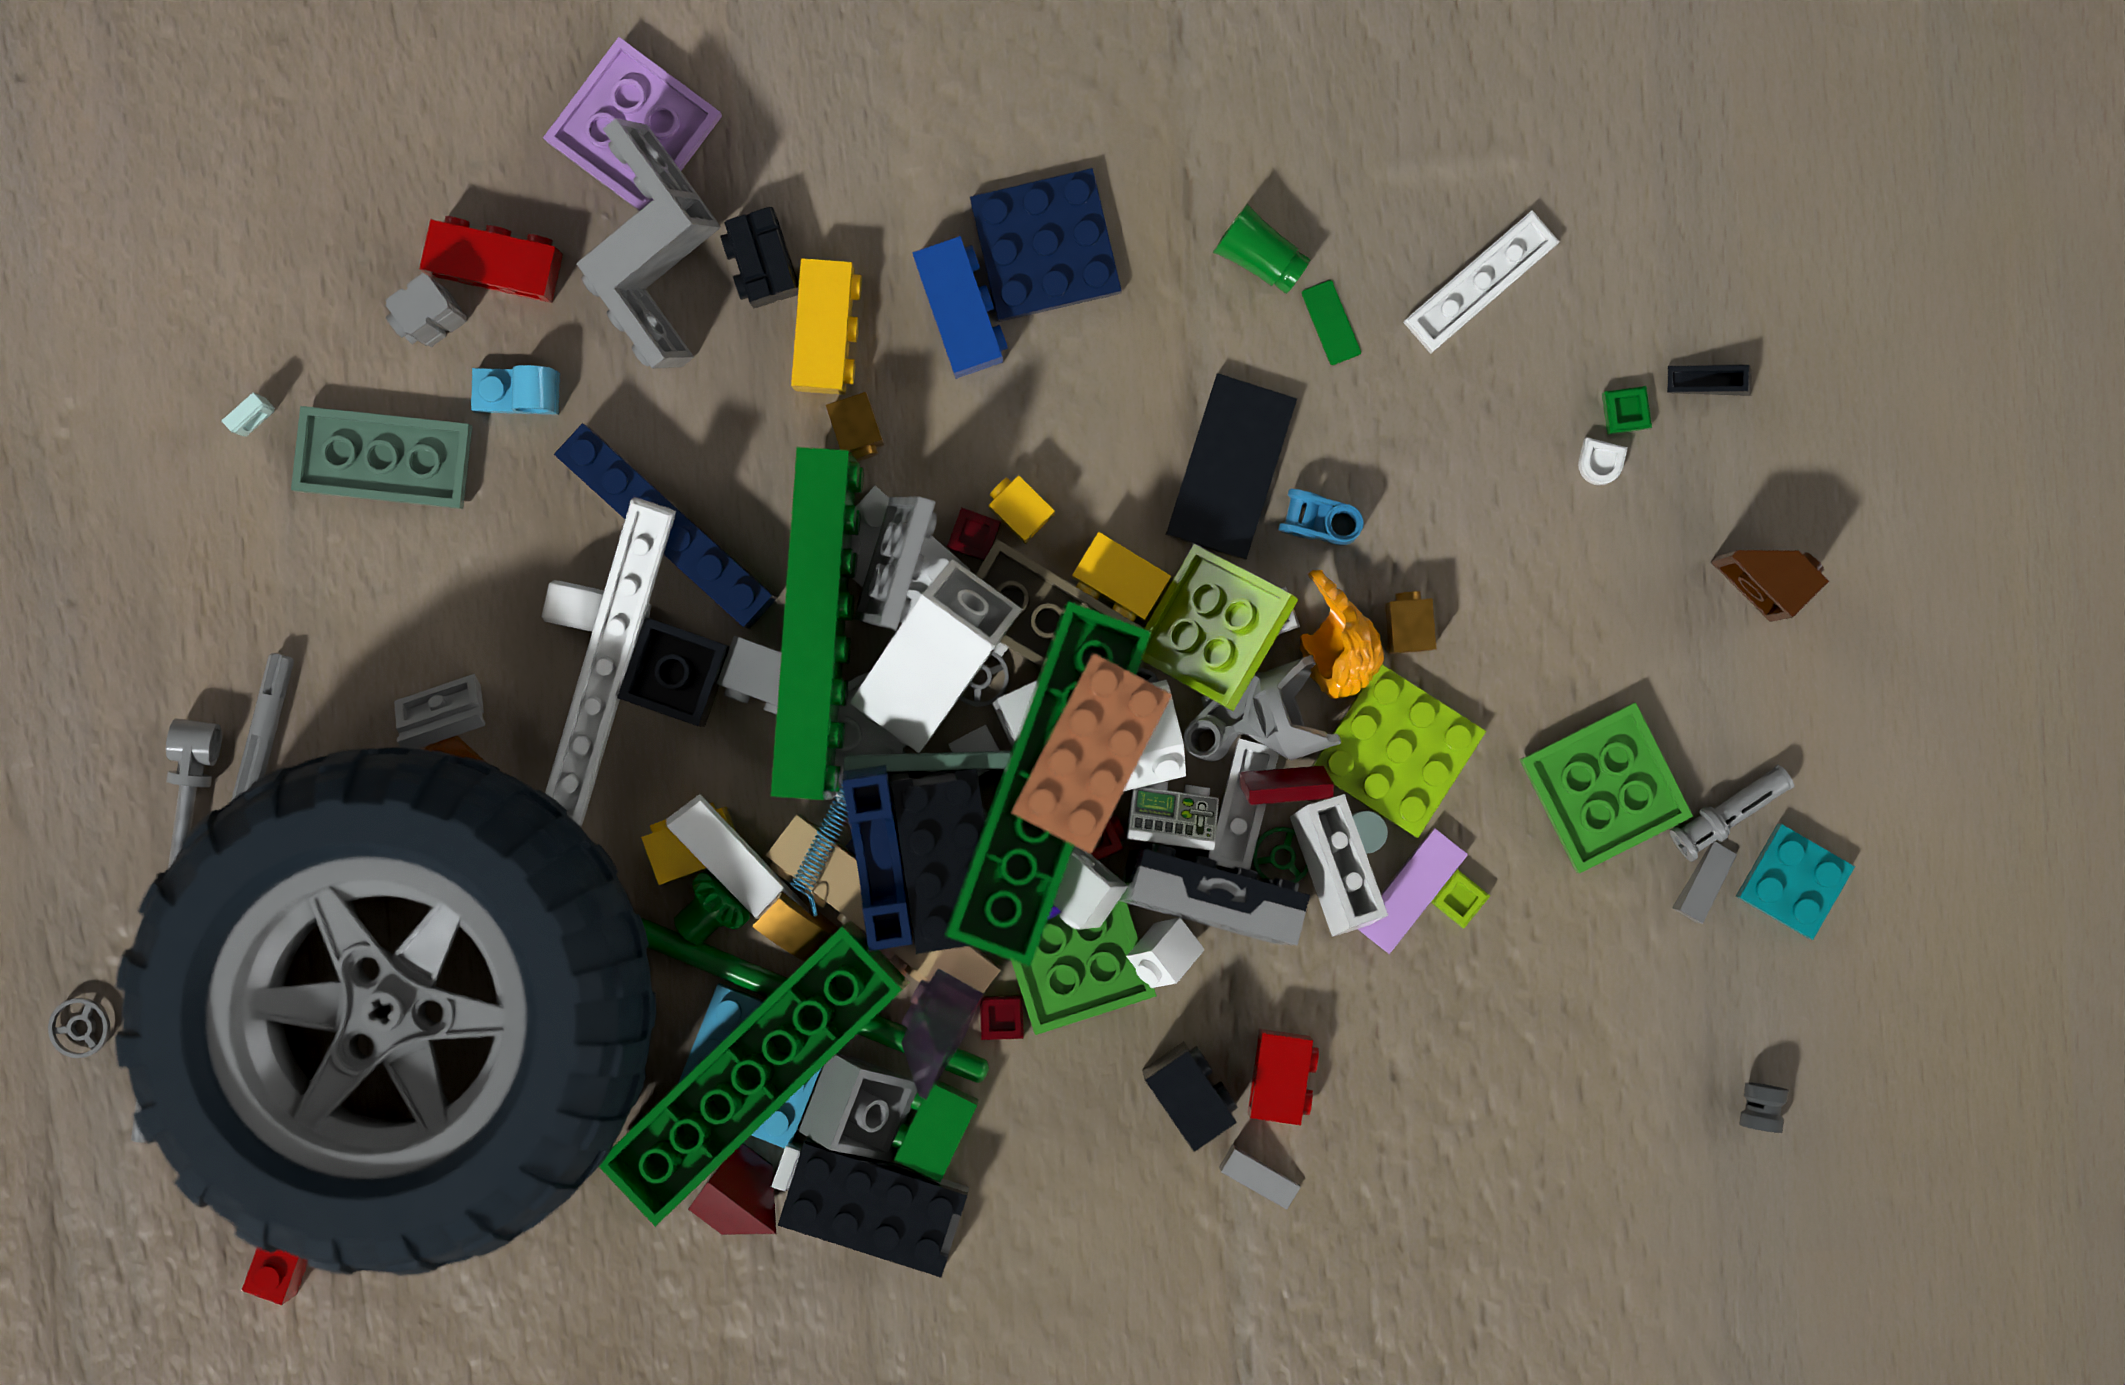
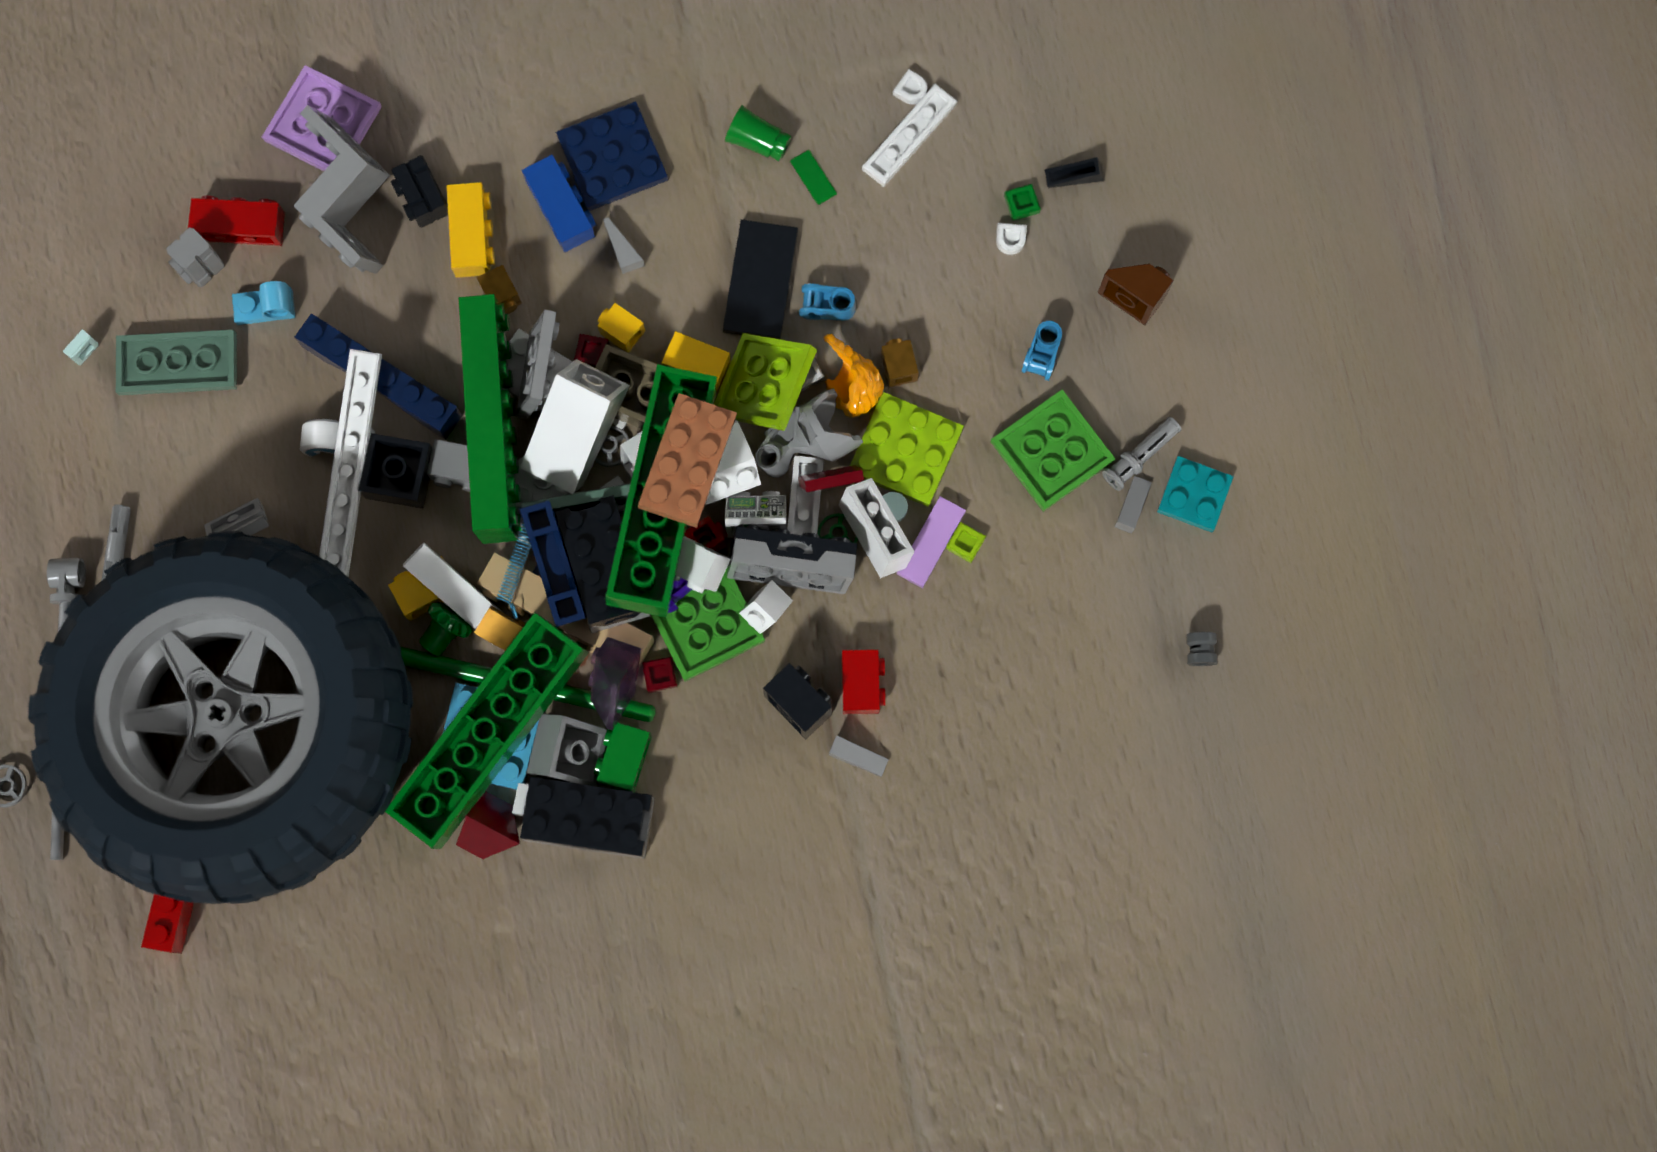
camera: 10 degrees left, 10 degrees down
(1043, 398) = (625, 253): none -> light grey piece
(1496, 210) = (911, 88): none -> white tile
(1617, 643) = (1041, 354): none -> dark azure piece

